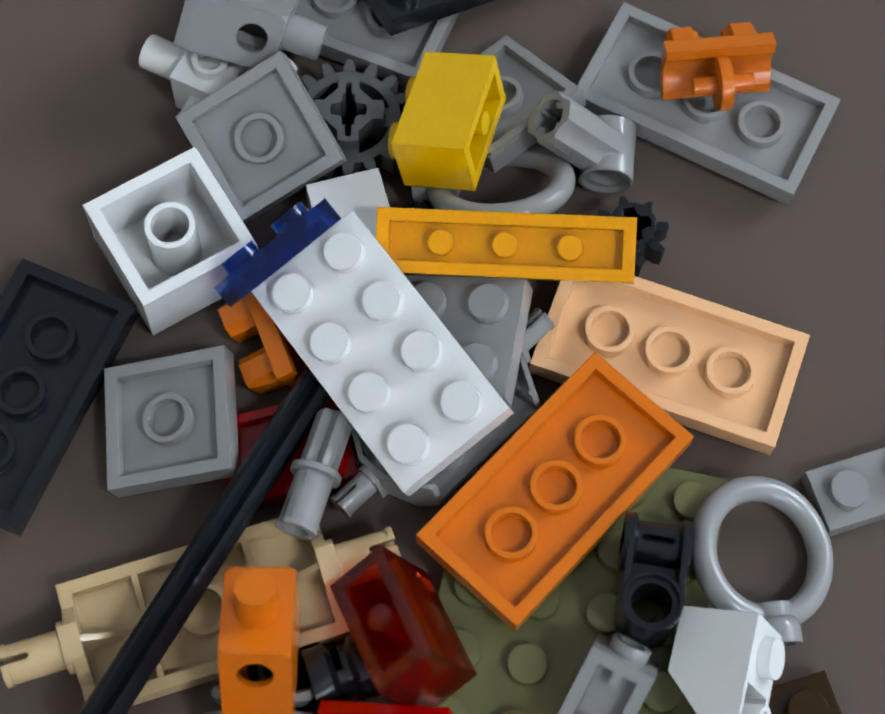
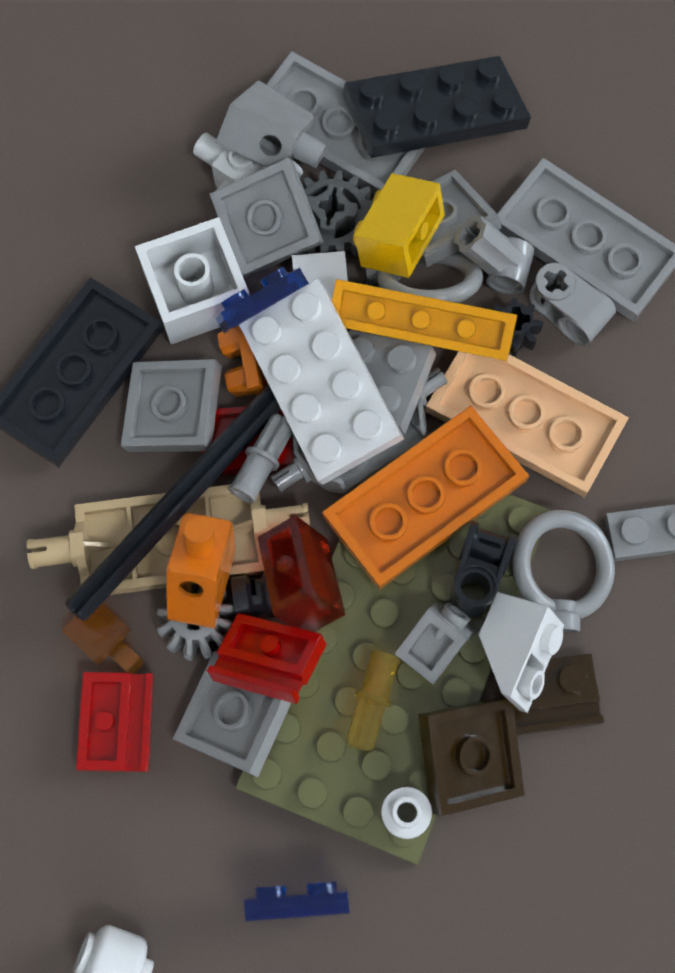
camera: 15 degrees right, 5 degrees up
(705, 194) = (573, 305): none -> light grey piece
(716, 65) = (599, 213): orange hips -> none

